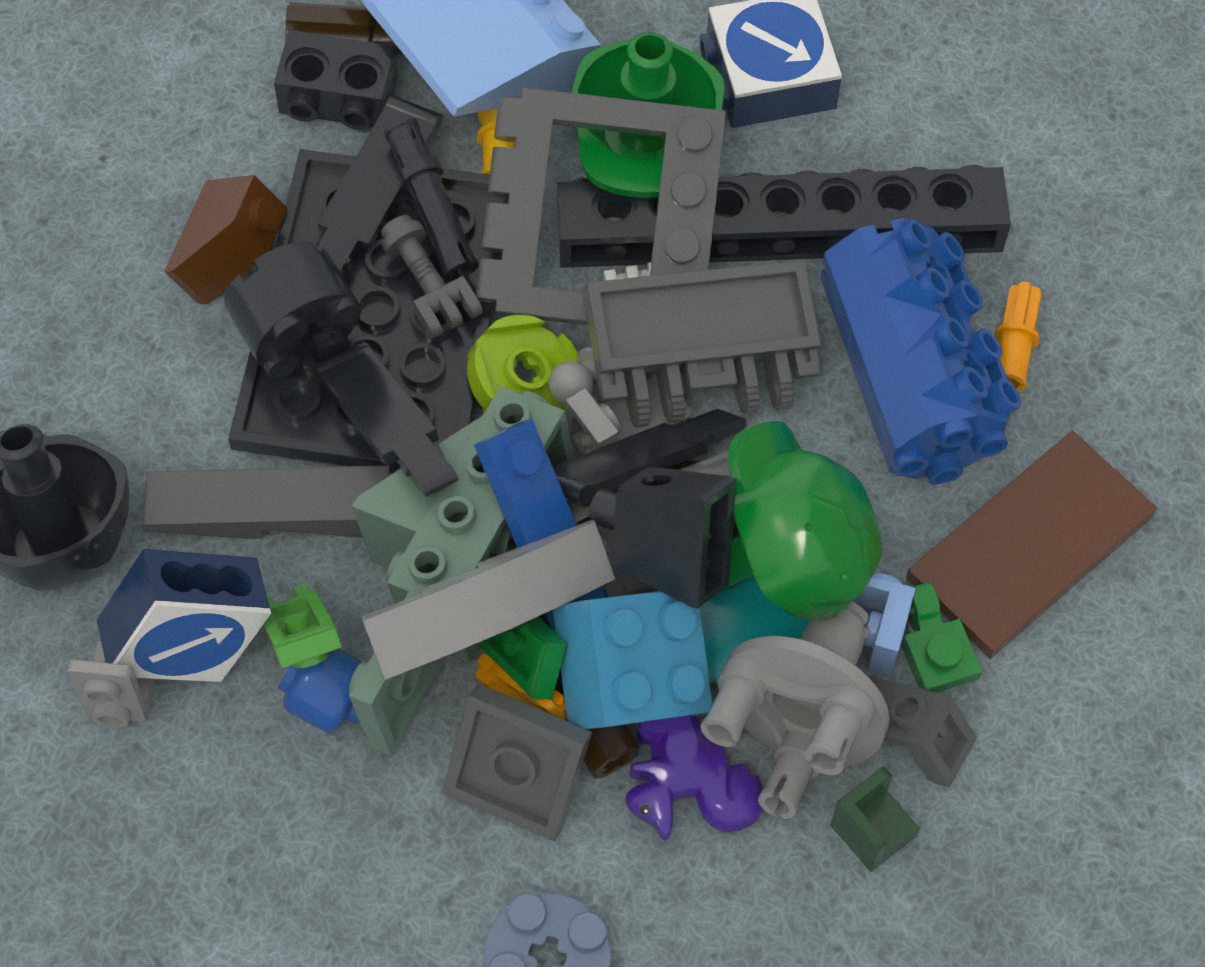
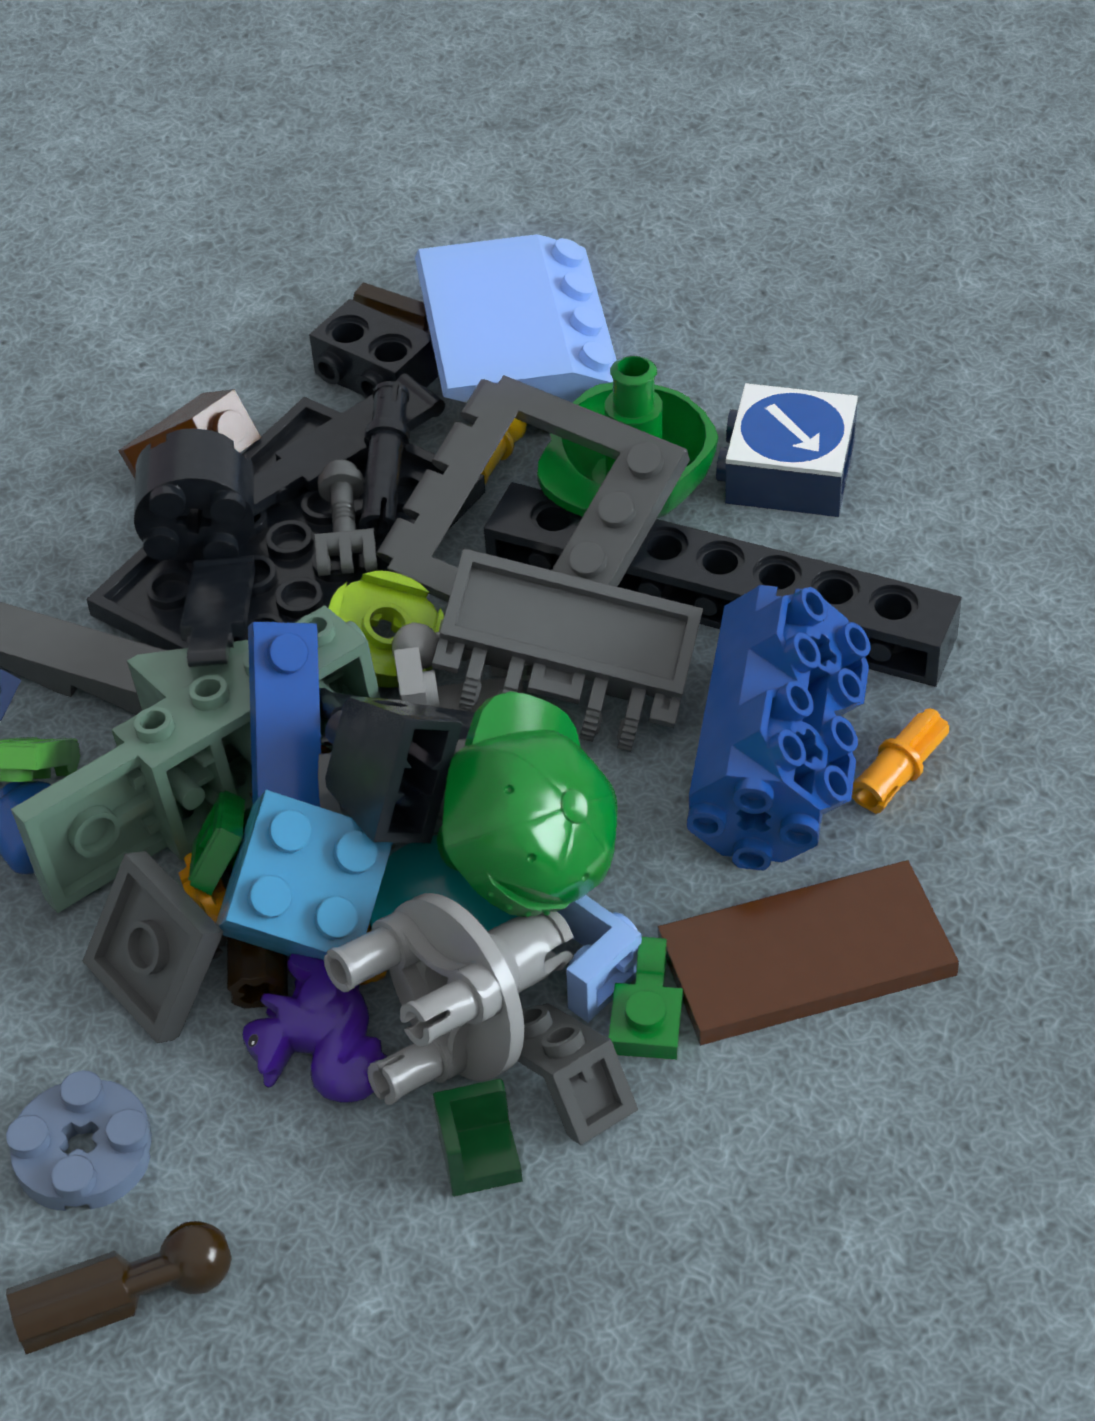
camera: 30 degrees right, 15 degrees down
(488, 599) = (184, 766): light grey slope -> none

